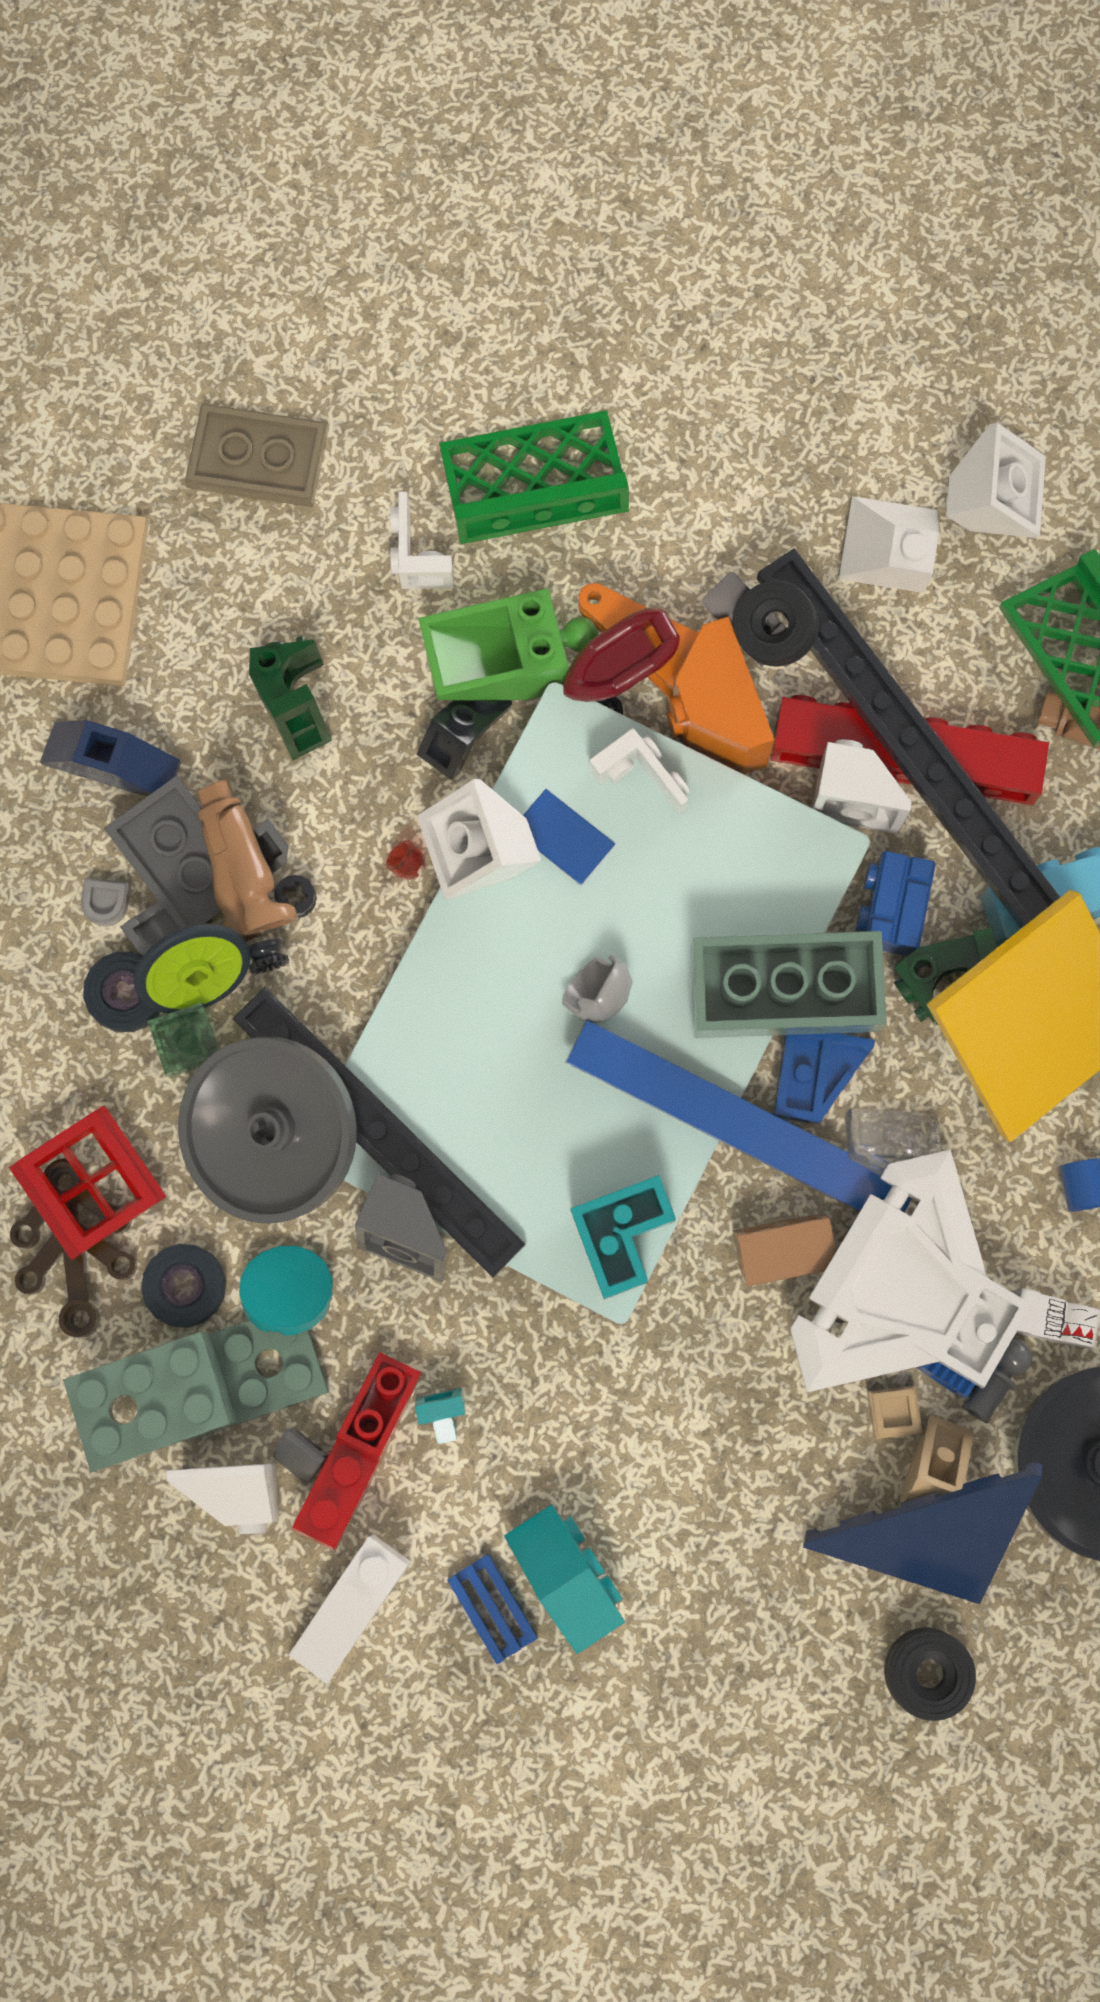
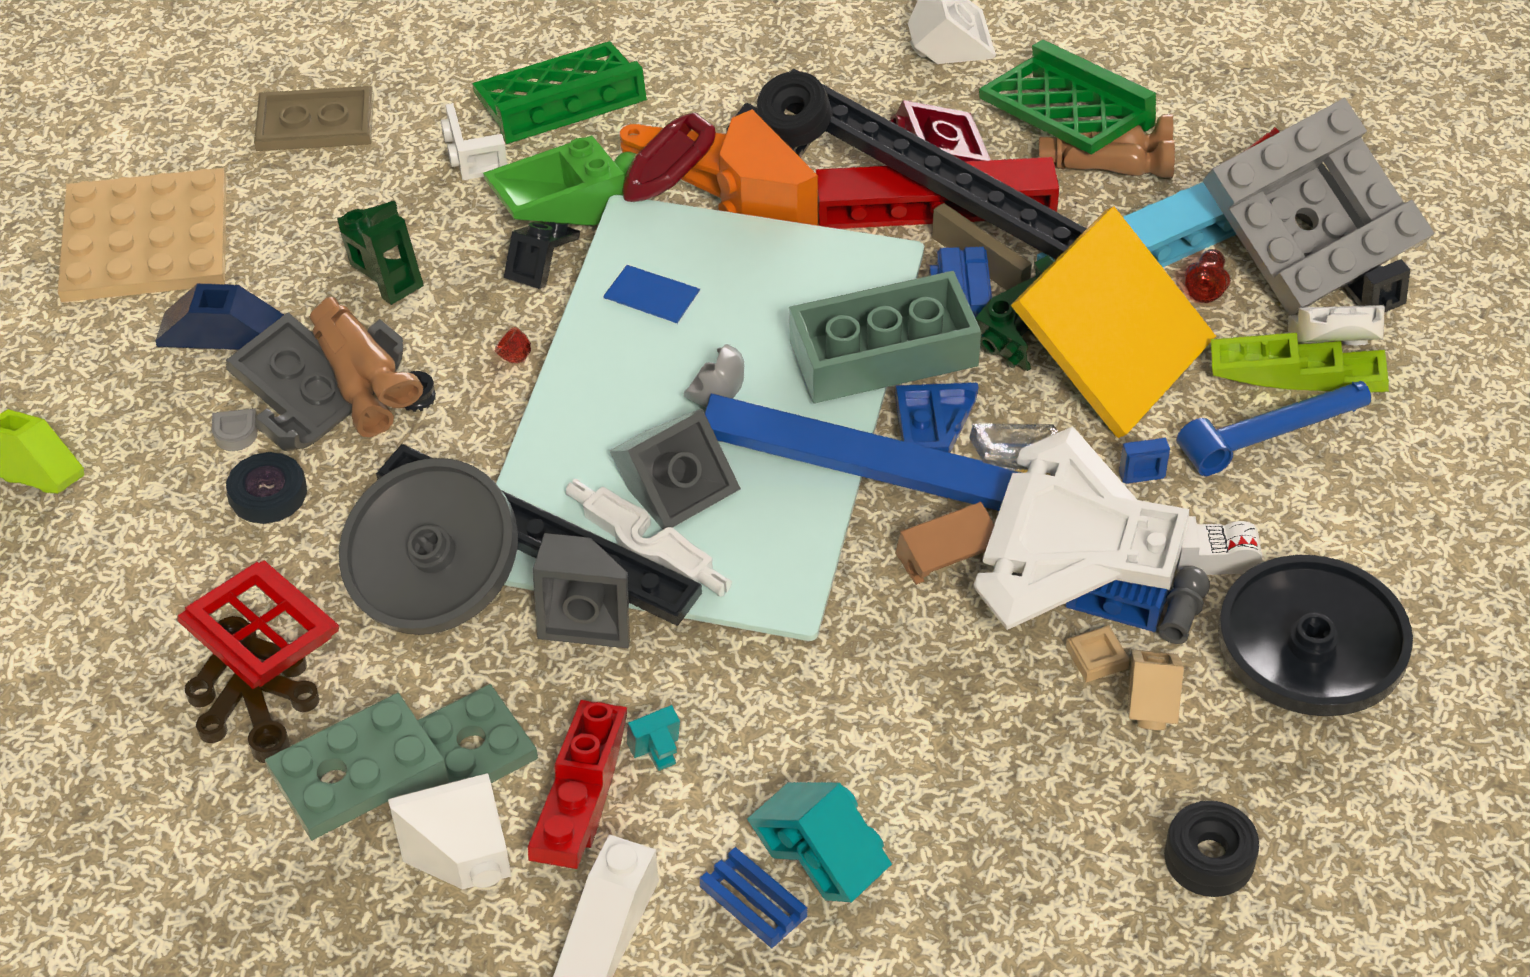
camera: 15 degrees left, 30 degrees down
(159, 1287) = (364, 679): black bush -> none
(184, 1039) = (327, 508): clear green piece -> none
(192, 968) = (309, 425): lime wheel -> none
(267, 954) = (388, 428): black bush -> none
(286, 1290) = (475, 669): teal tile -> none
(299, 1455) = (519, 802): dark grey slope -> none
(476, 839) = (574, 298): white slope -> none
(502, 1185) = (629, 524): none -> white piece
(530, 1098) = (676, 469): none -> dark grey slope
(608, 1229) = (785, 543): teal brick -> none
(618, 758) = (698, 214): white bracket -> none
(859, 789) = (905, 207): white slope -> none
(889, 544) = (876, 77): white slope -> none
(933, 847) = (955, 230): none -> dark tan tile
(937, 667) = (943, 127): none -> dark red plate
(937, 1540) = (1178, 720): dark blue tile -> none
(1015, 1190) = (1144, 460): none -> blue tile

